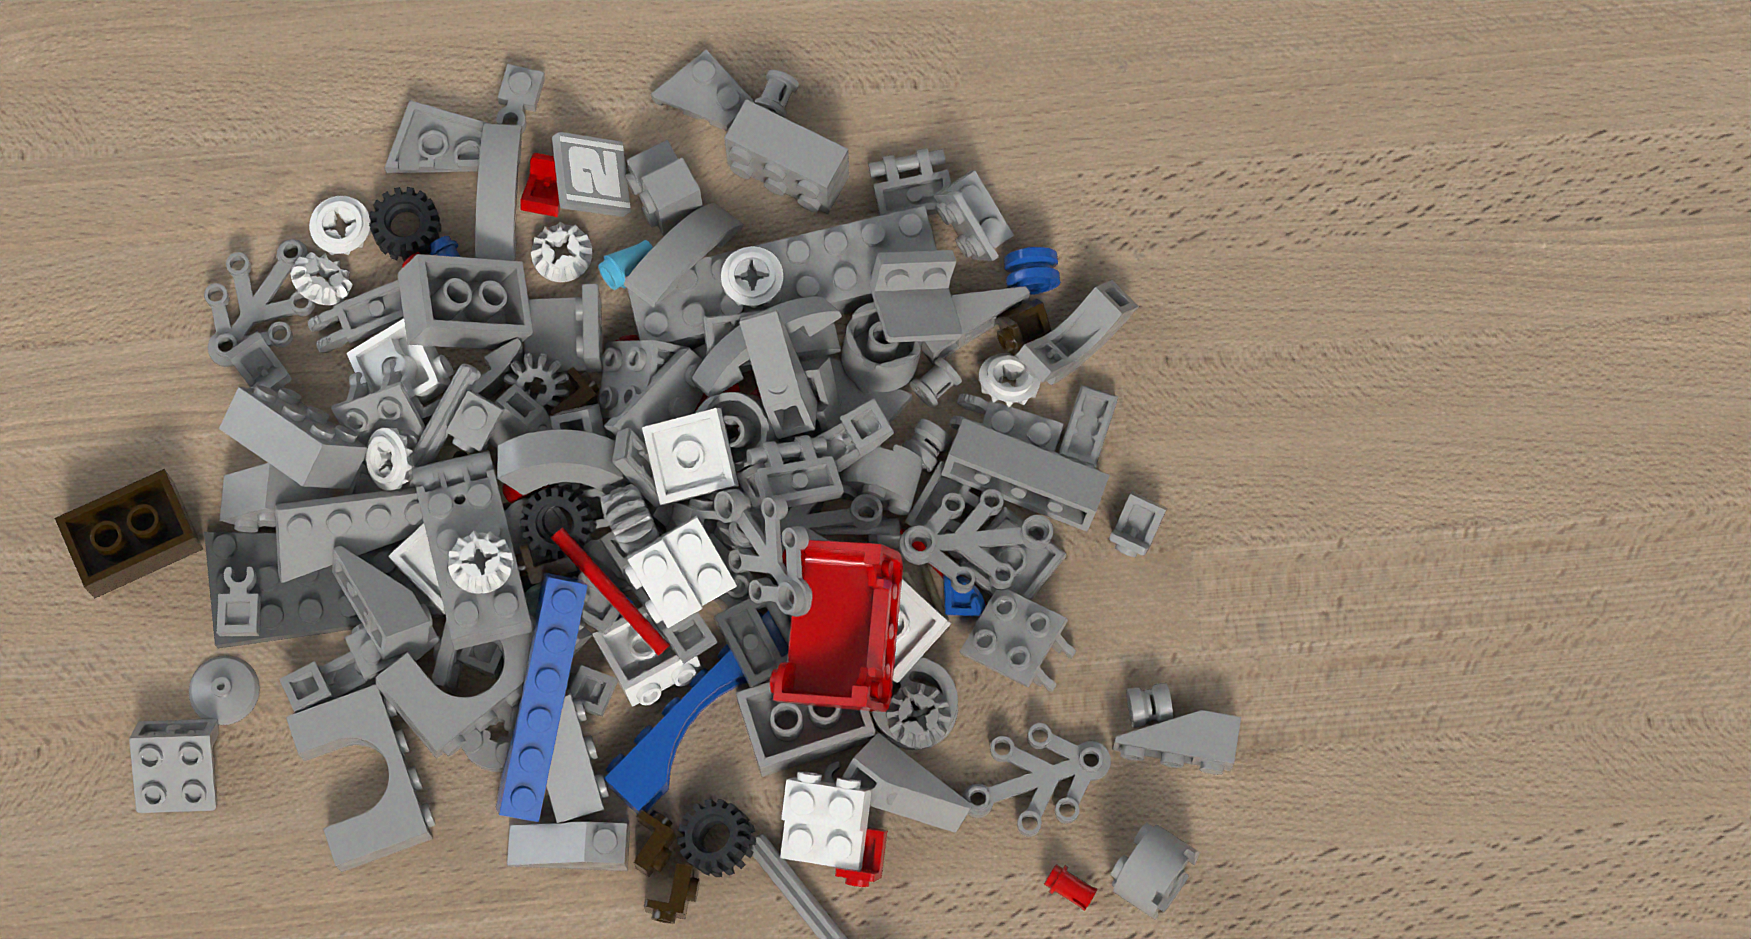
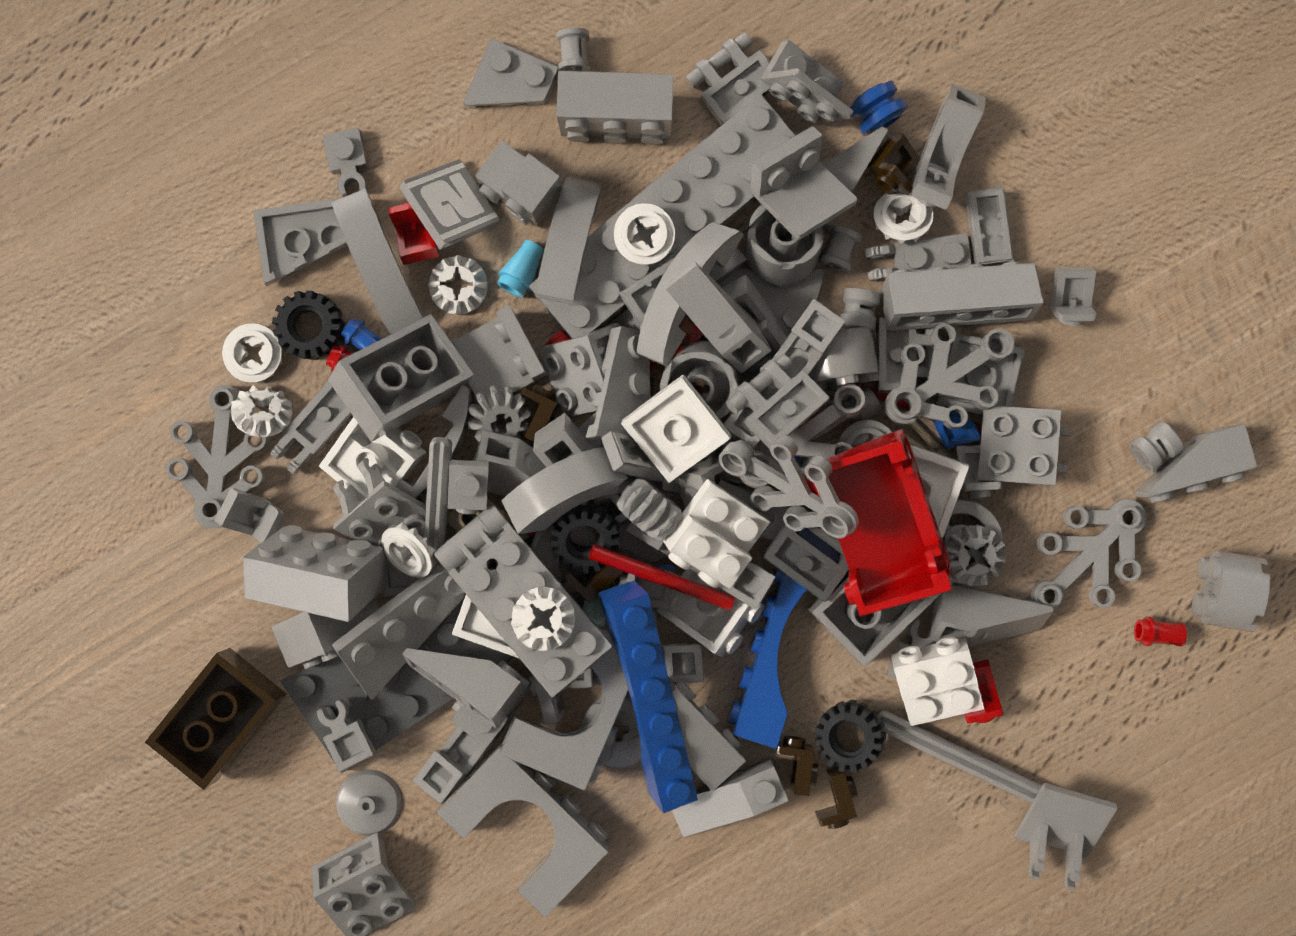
camera: 30 degrees left, 15 degrees up
(950, 650) = (975, 487): none -> light grey bracket

